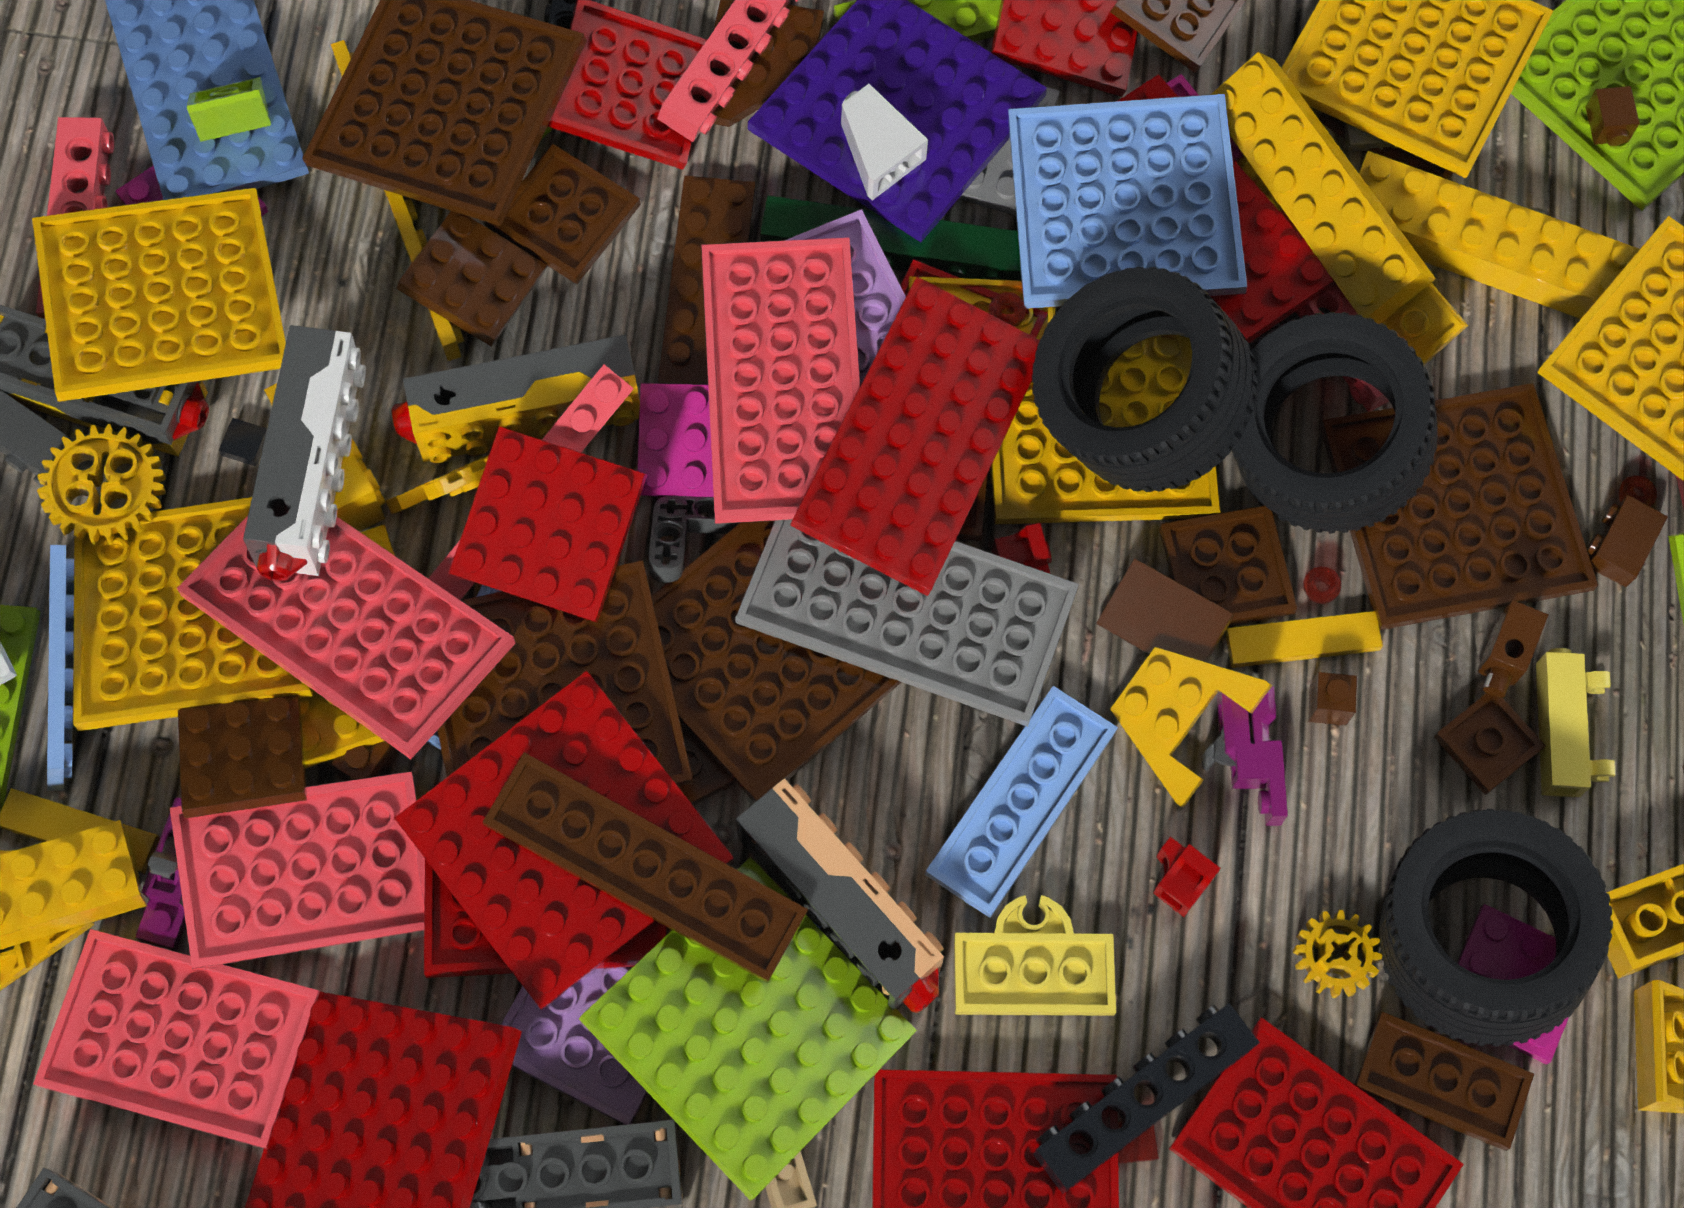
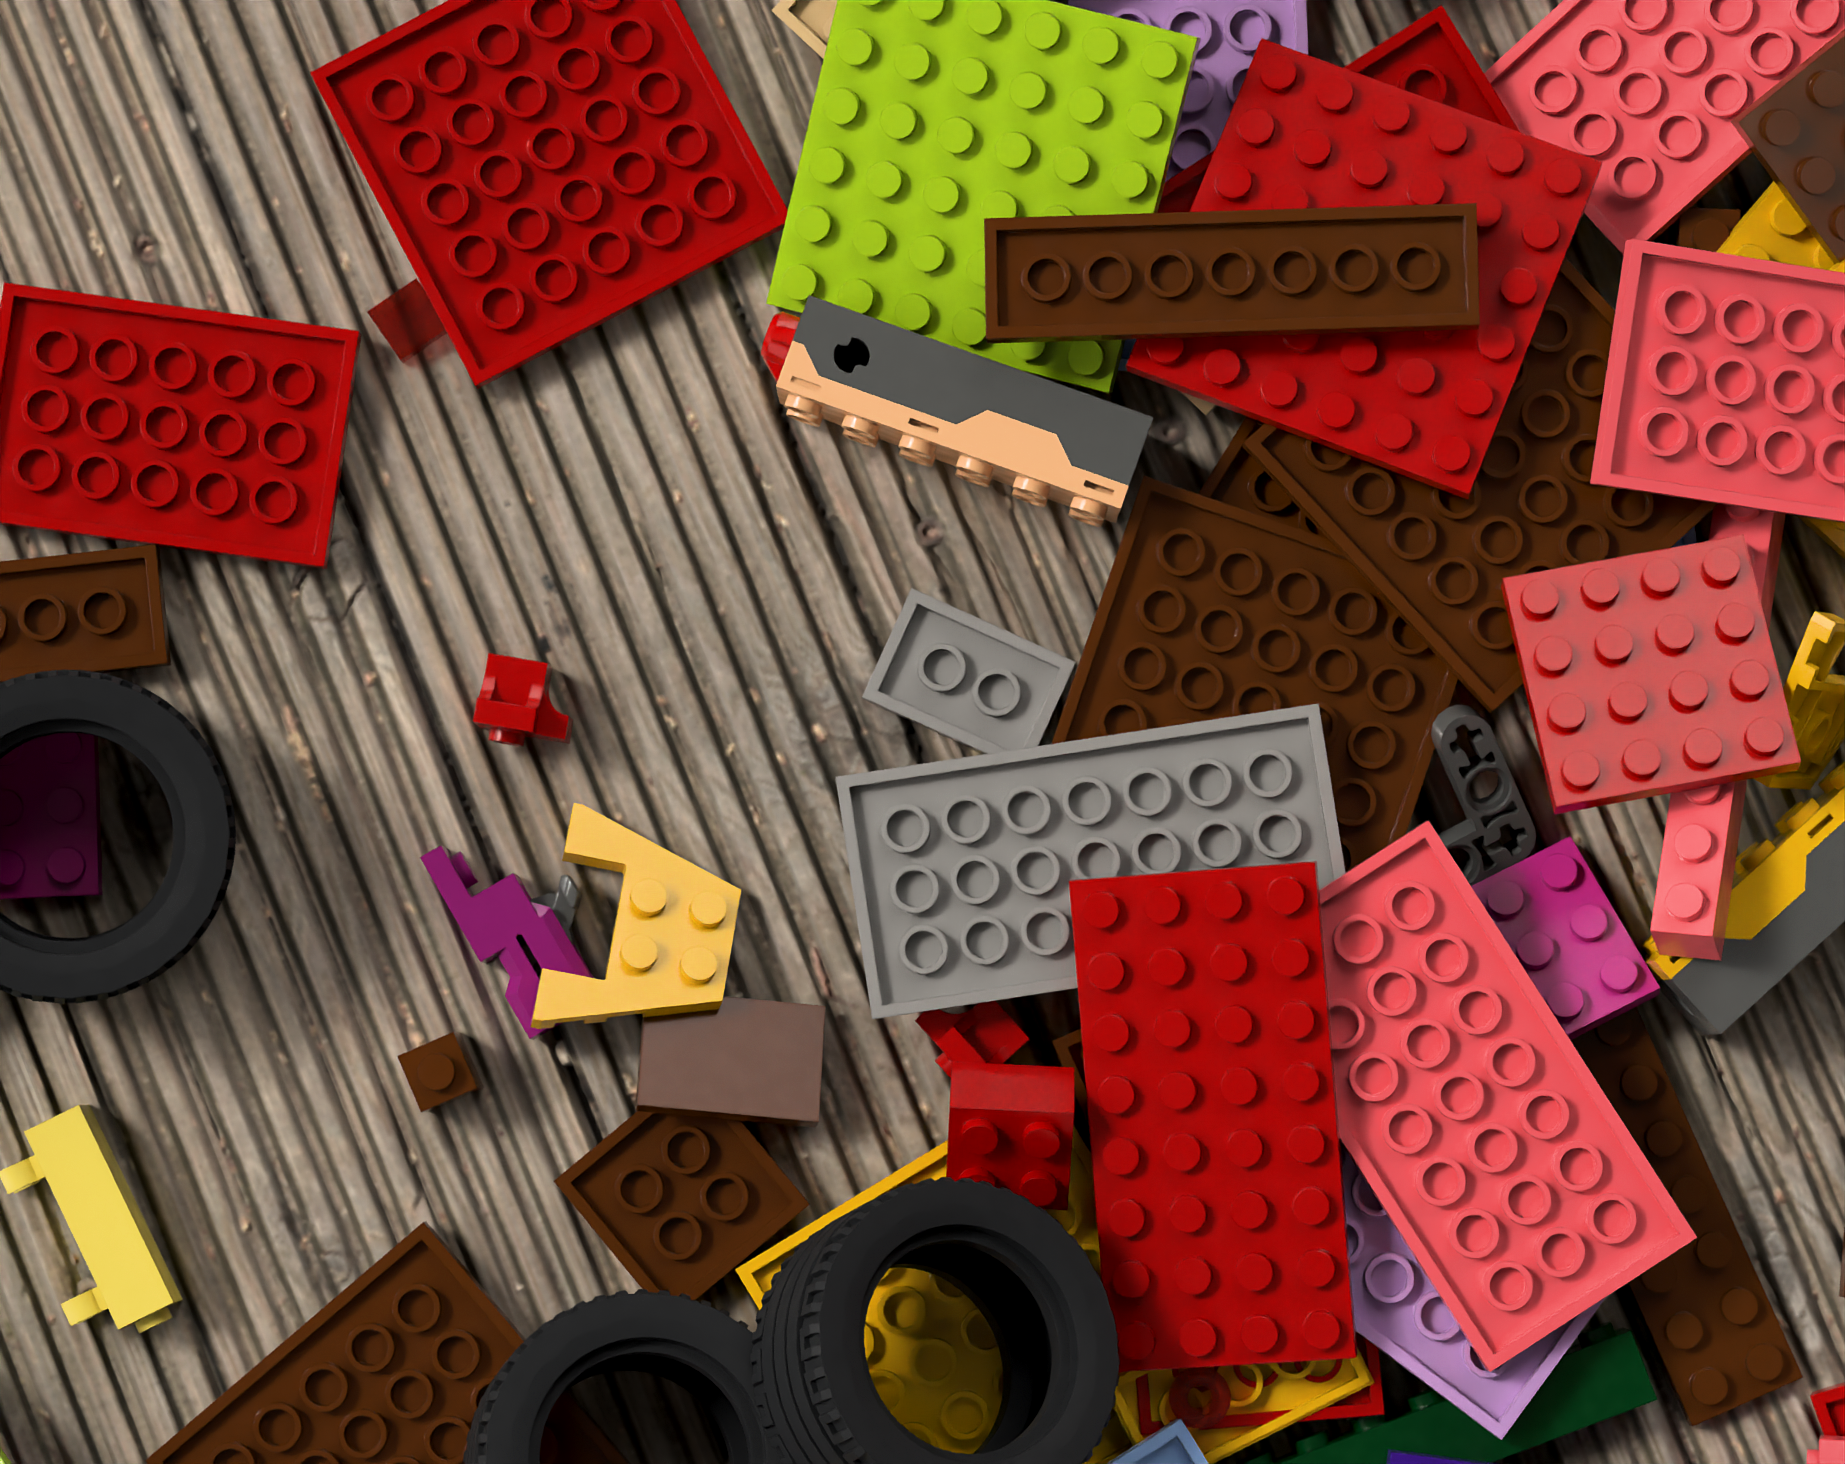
camera: 155 degrees right, 15 degrees up
(918, 752) = (967, 677): none -> light grey plate
(1021, 801) = (792, 690): light blue plate -> none
(1034, 967) = (657, 472): light yellow plate -> none
(1036, 486) = (1013, 1129): none -> red brick
(1232, 1043) = (469, 222): black brick -> none
(1303, 639) = (524, 1148): yellow tile -> none
(1324, 575) = (519, 1251): clear red plate -> none
(1328, 941) = (274, 684): yellow gear -> none
(1489, 741) = (195, 1135): reddish brown plate -> none
(1510, 647) = (222, 1304): reddish brown torso -> none

